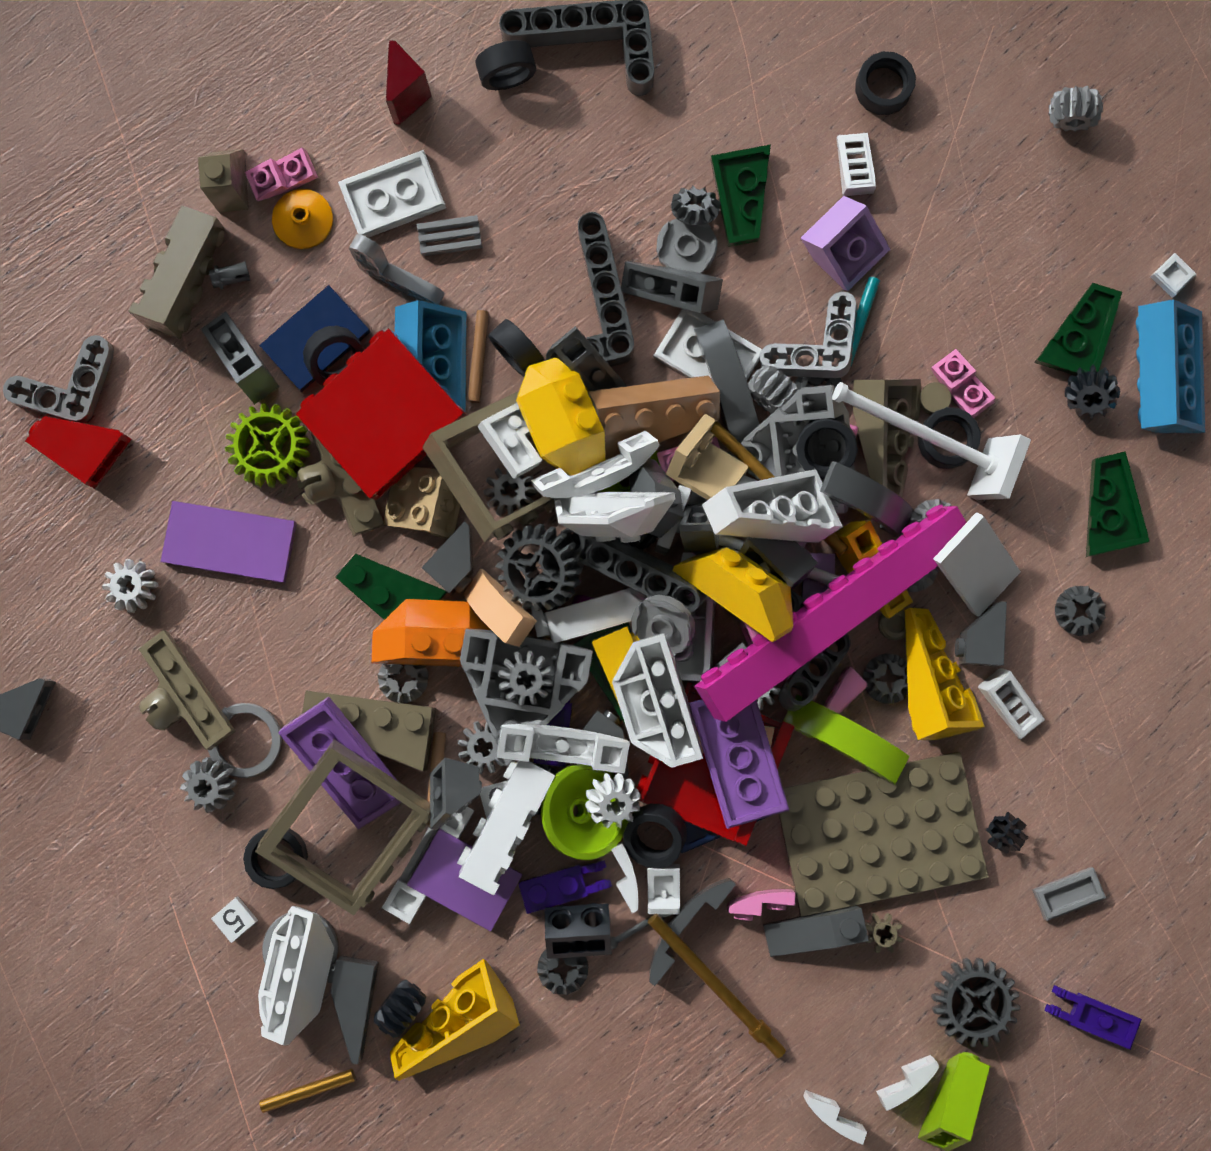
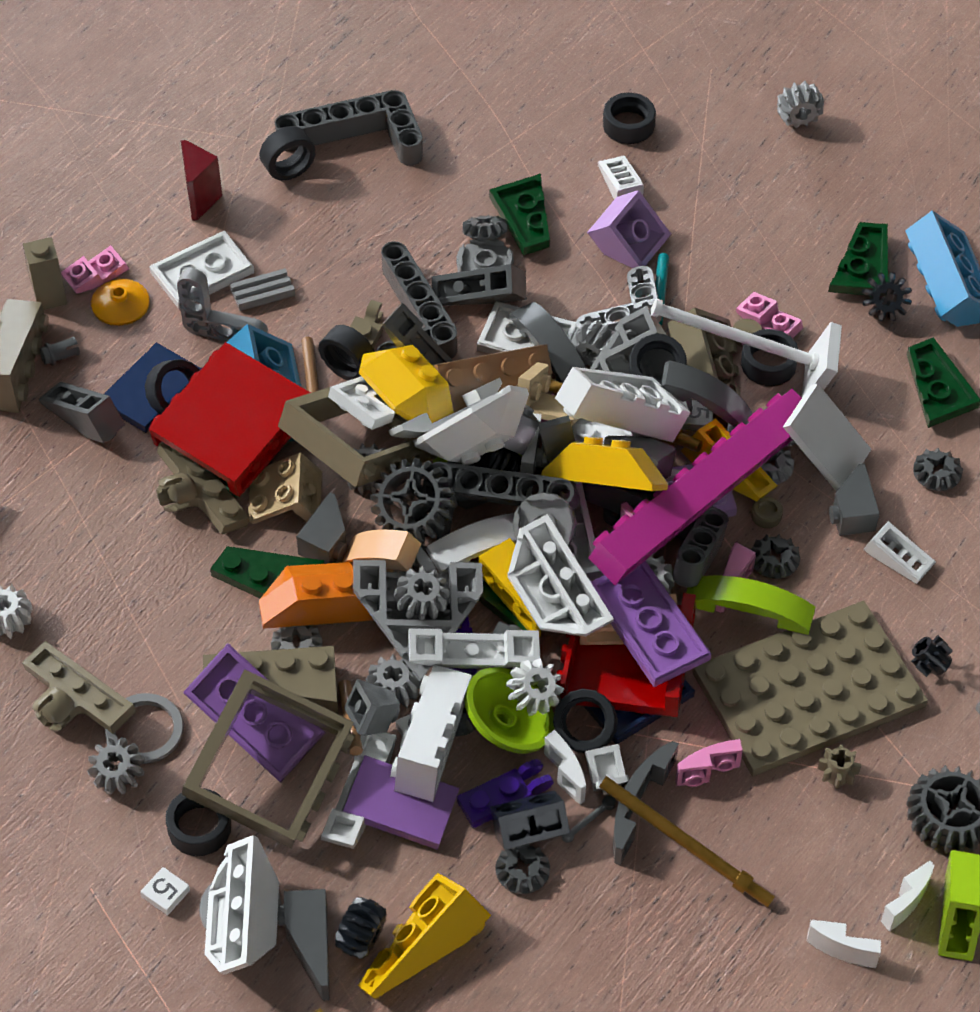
camera: 15 degrees left, 30 degrees down
(228, 541) = (97, 562): medium lavender tile -> none
(258, 452) = (123, 482): lime gear -> none
(543, 313) = (370, 326): none -> dark tan plate
(816, 931) = (774, 778): dark grey slope -> none
(935, 693) = (819, 552): yellow wedge -> none
(1173, 275) = (926, 204): white tile -> none

